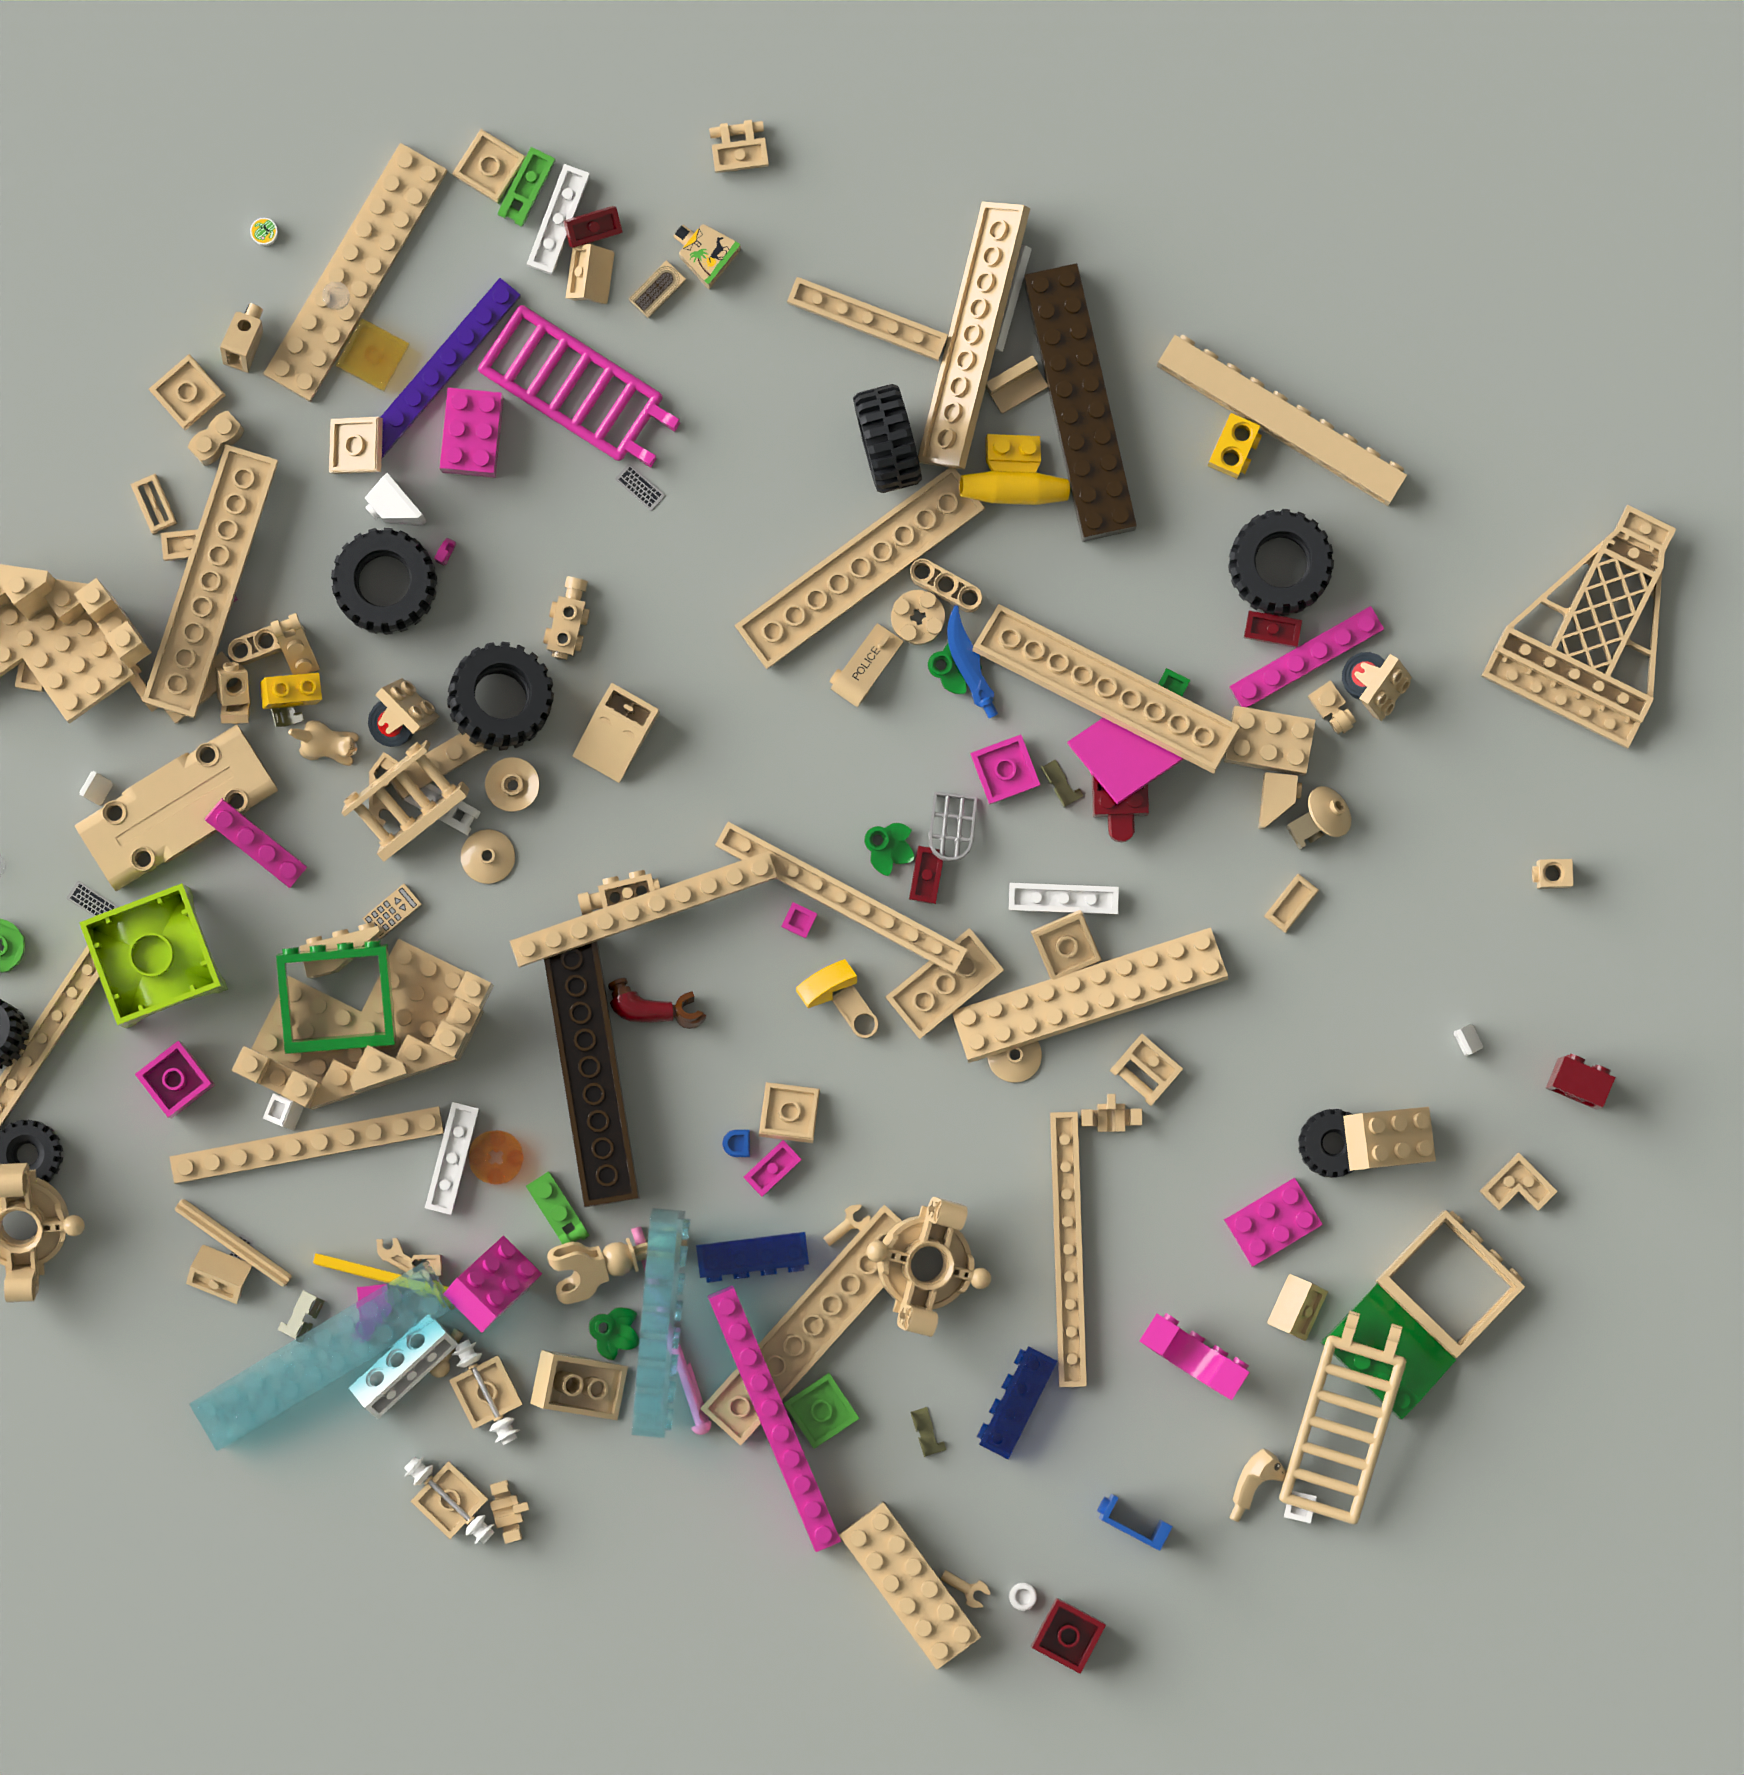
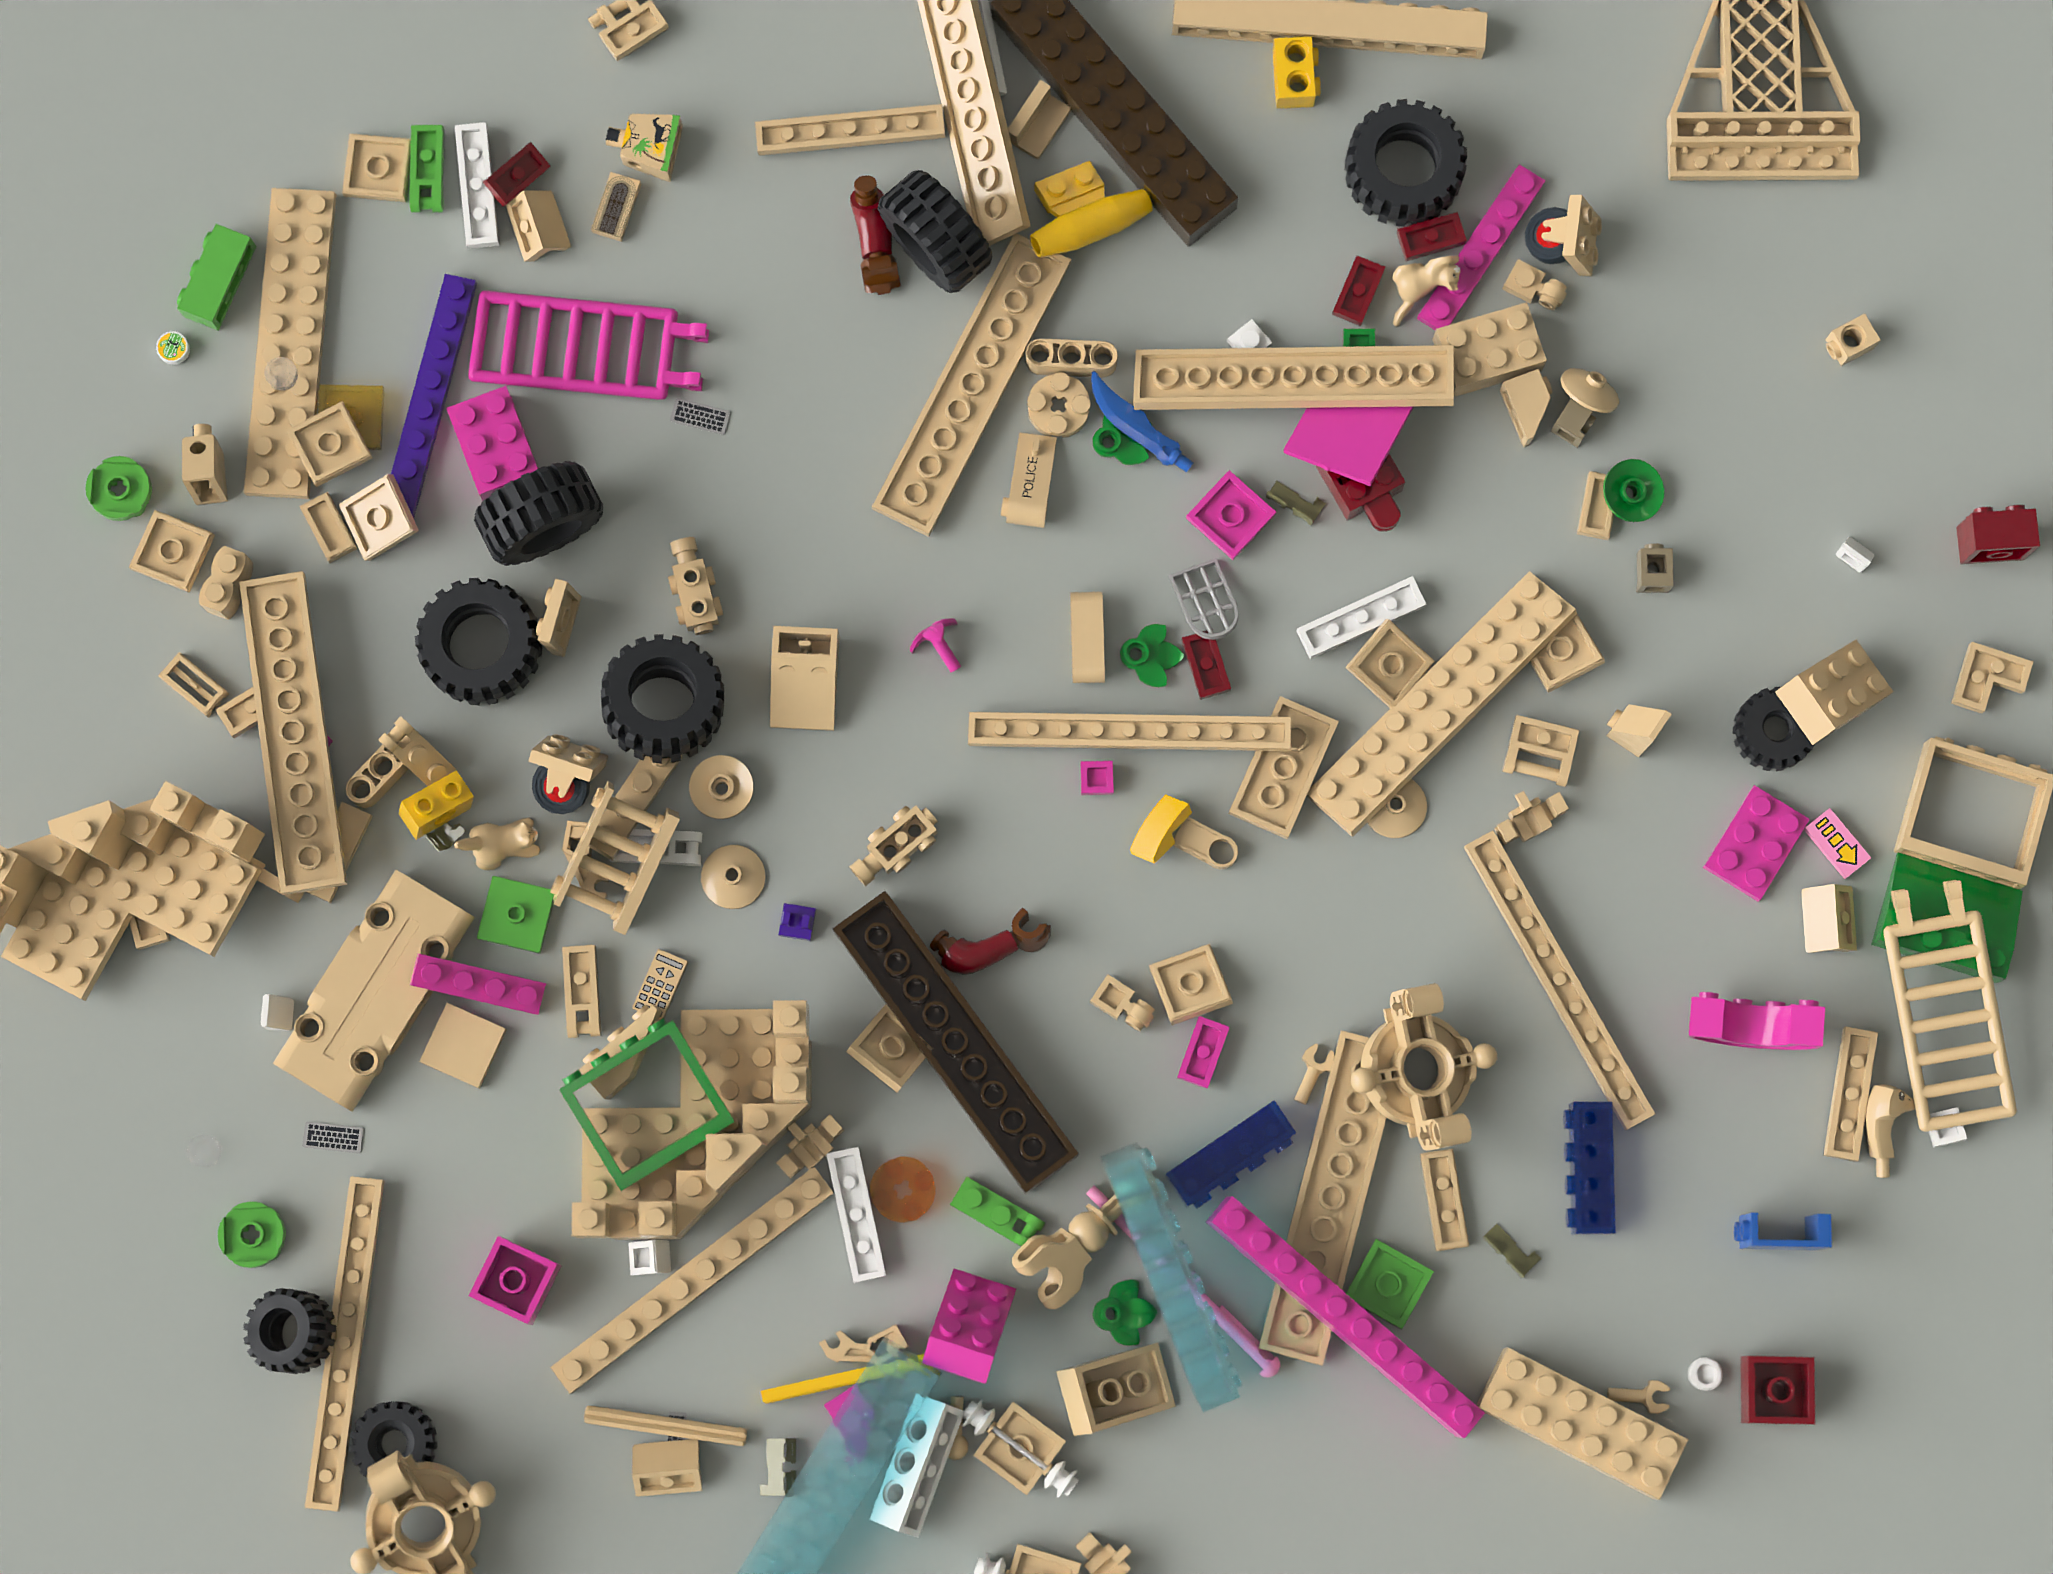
camera: 25 degrees left, 5 degrees down
(152, 955) = (423, 1157): lime piece -> none
(175, 337) = (106, 475): none -> bright green plate
(222, 882) = (463, 1045): none -> tan tile
(235, 713) = (387, 856): tan plate -> none
(238, 693) = (381, 835): tan brick -> none
(310, 803) = (516, 914): none -> bright green plate
(314, 432) = (328, 527): none -> tan tile
(323, 192) = (216, 276): none -> bright green brick
(331, 885) = (581, 990): none -> tan plate
(346, 369) = (329, 444): none -> tan tile
(392, 504) = (449, 557): white slope -> none
(443, 1089) = (809, 1145): none -> tan piece
(445, 551) = (528, 582): dark pink tile -> none
(460, 586) = (559, 618): none -> tan plate
(476, 507) = (538, 513): none -> black tyre
(518, 915) = (797, 922): none -> dark purple tile
(536, 1047) = (887, 1050): none -> tan plate
(643, 909) = (927, 846): tan plate -> none
(727, 1094) = (1115, 998): none -> tan plate
(731, 749) = (935, 634): none -> dark pink plant
(737, 1143) = (1152, 1045): blue tile -> none
(834, 440) = (878, 265): none -> piece
(847, 808) = (1087, 637): none -> tan beam
(896, 1370) = (1444, 1200): none -> tan tile
(1091, 638) = (1249, 337): none -> white plate
(1194, 643) = (1358, 290): none -> dark red plate
(1204, 1007) = (1567, 656): none -> tan plate
(1224, 1088) = (1636, 727): none -> tan slope
(1242, 658) = (1416, 281): none -> tan animal
(1242, 1445) = (1850, 1094): none -> tan plate
(1302, 984) = (1662, 558): none -> dark tan brick
(1334, 910) = (1646, 488): none -> green dish
(1334, 1253) = (1837, 843): none -> bright pink tile

